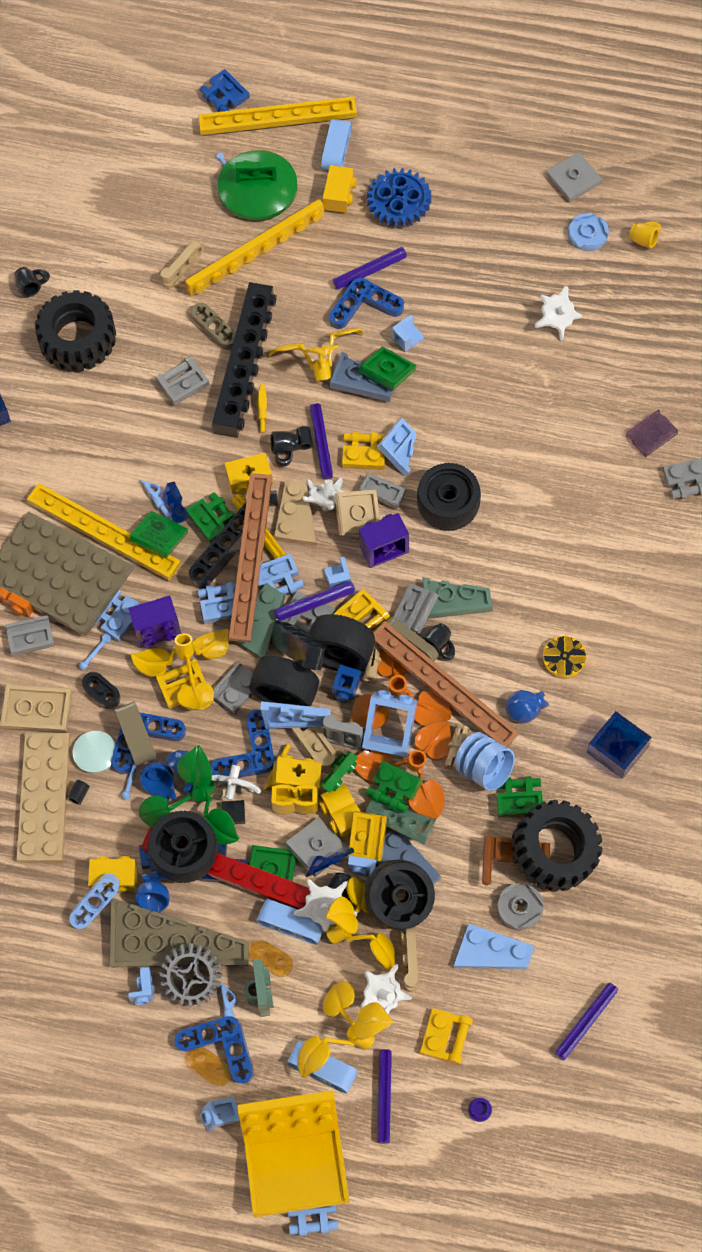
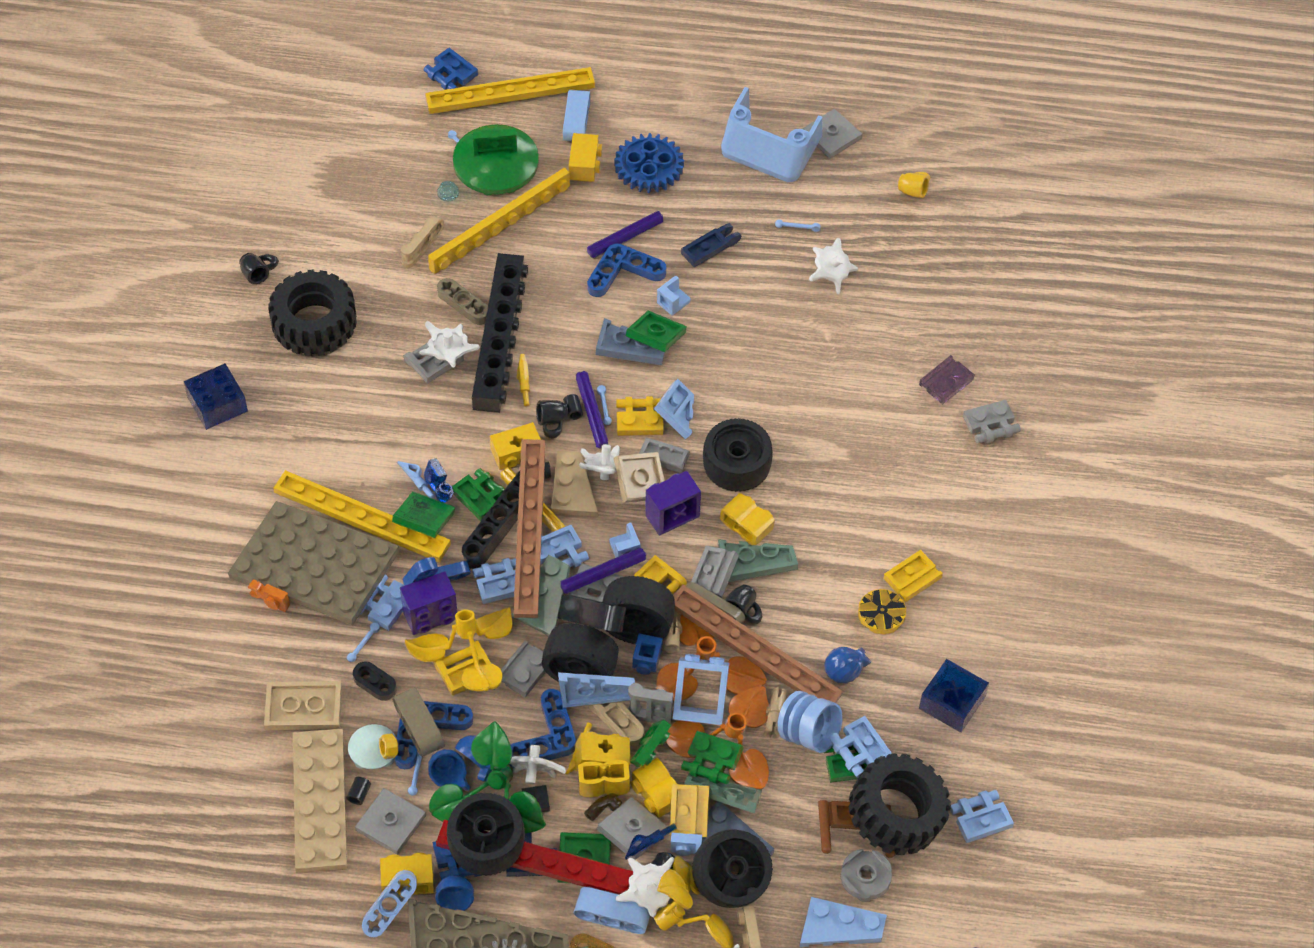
camera: 10 degrees left, 10 degrees down
(30, 635) = (289, 629): light grey plate -> none
(104, 822) = (390, 821): none -> light grey plate
(107, 754) = (388, 746): none -> yellow tile
(155, 592) = (428, 567): none -> blue beam
(194, 370) = (447, 343): none -> white piece
(210, 215) = (447, 191): none -> clear light blue plate
(290, 822) = (600, 804): none -> dark brown arm
(322, 365) = (584, 332): yellow plant -> none
(332, 422) = (601, 390): none -> light blue hinge
(447, 284) = (710, 244): none -> dark blue hinge
(451, 559) = (747, 519): none -> yellow brick
(507, 192) = (764, 150): none -> light blue windscreen
(533, 783) = (866, 742): none -> light blue plate
(547, 271) = (815, 226): none -> light blue hinge
(588, 232) = (853, 186): light blue tile -> none
(596, 625) = (912, 575): none -> yellow plate
(634, 865) = (983, 822): none -> light blue plate

